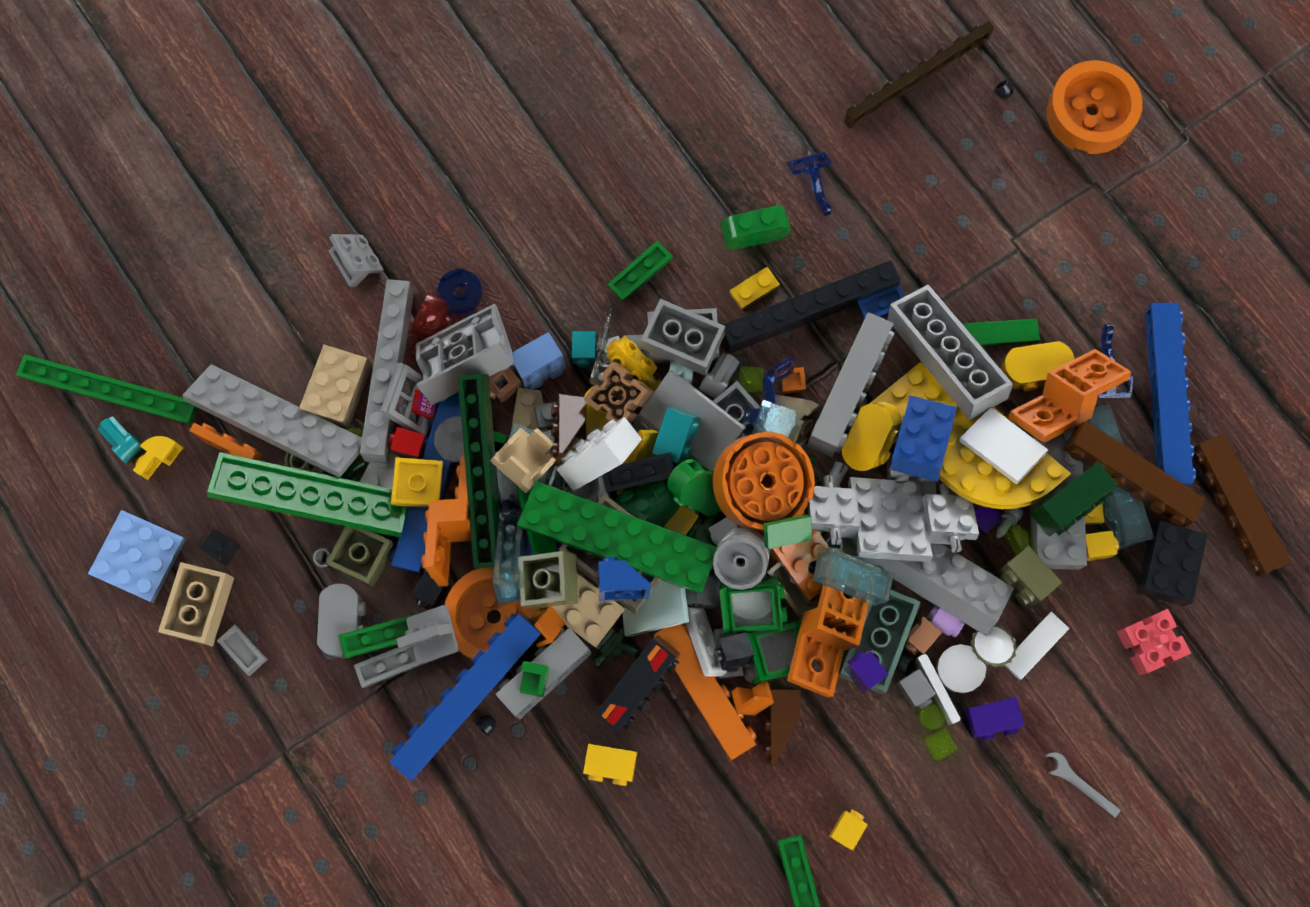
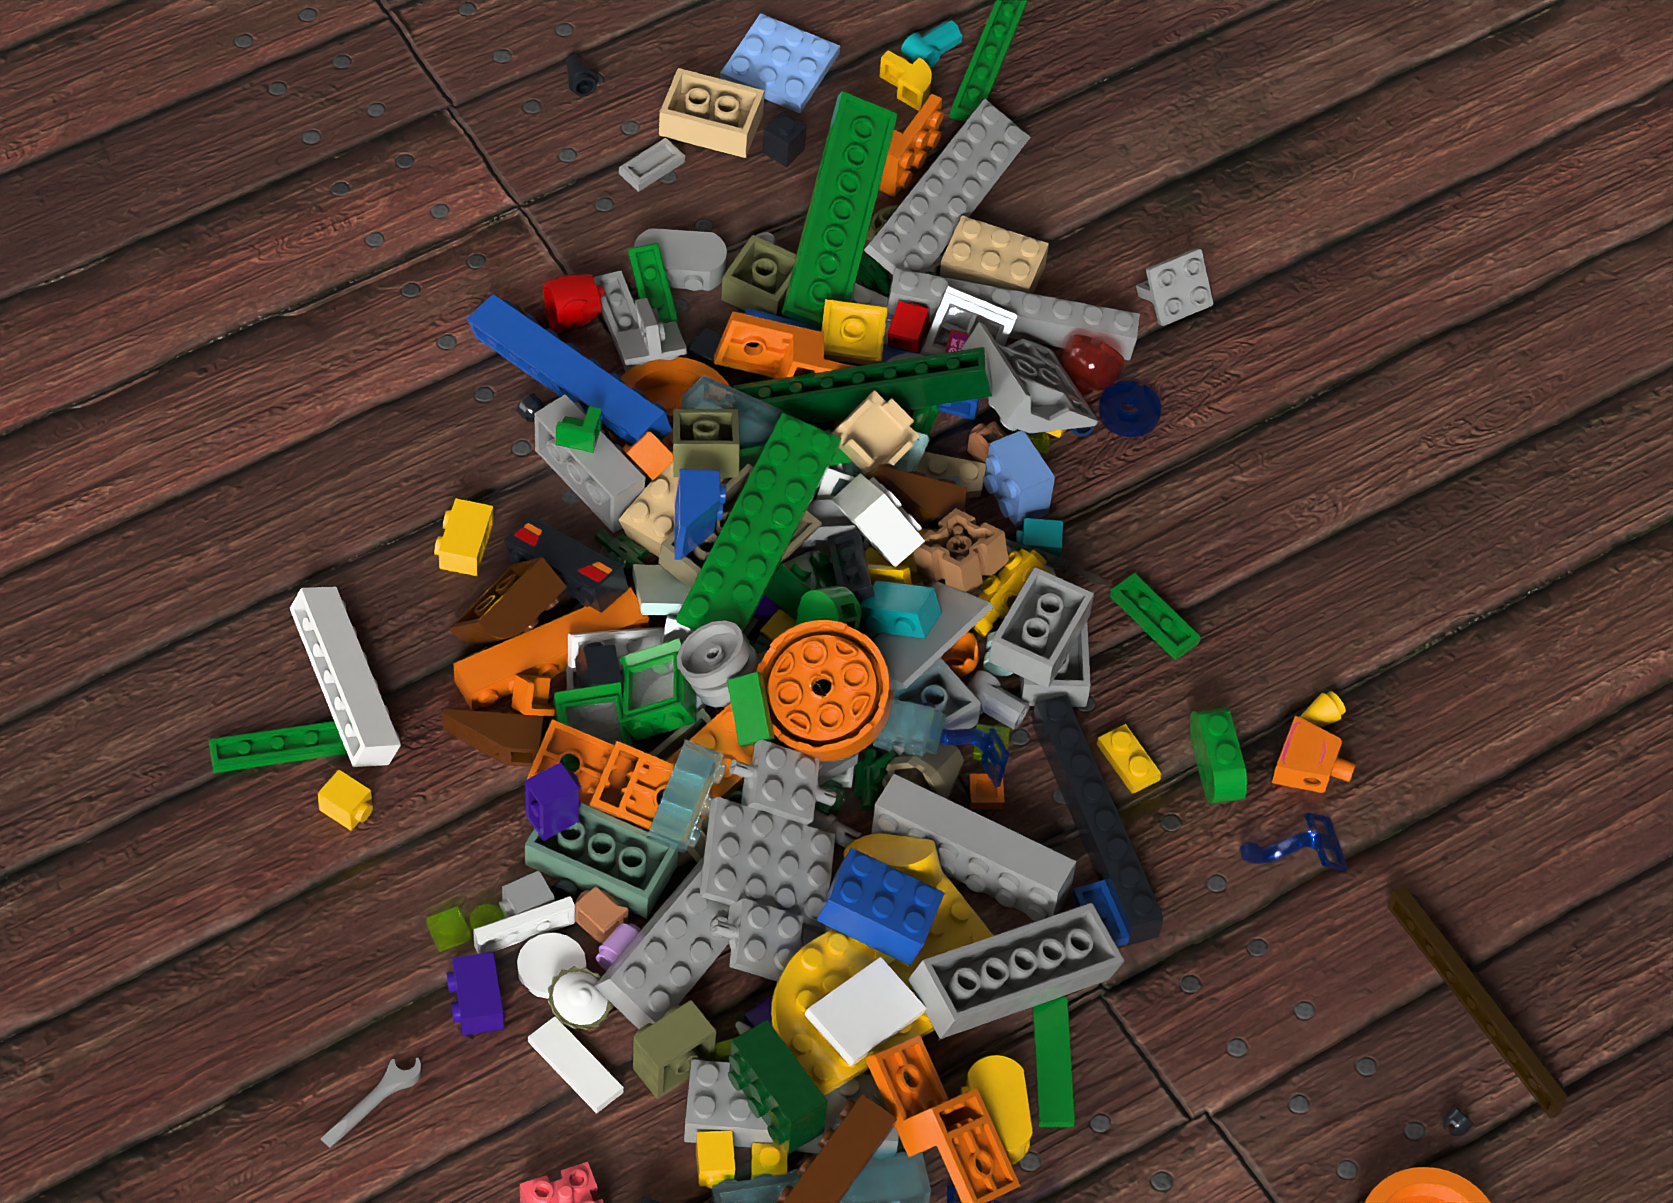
camera: 85 degrees right, 20 degrees down
(157, 712) = (580, 76): none -> black cone
(387, 700) = (571, 301): none -> red helmet
(680, 723) = (510, 603): none -> reddish brown brick
(709, 164) = (1324, 710): none -> yellow cone
(744, 842) = (345, 677): none -> white brick
(746, 171) = (1311, 758): none -> orange torso

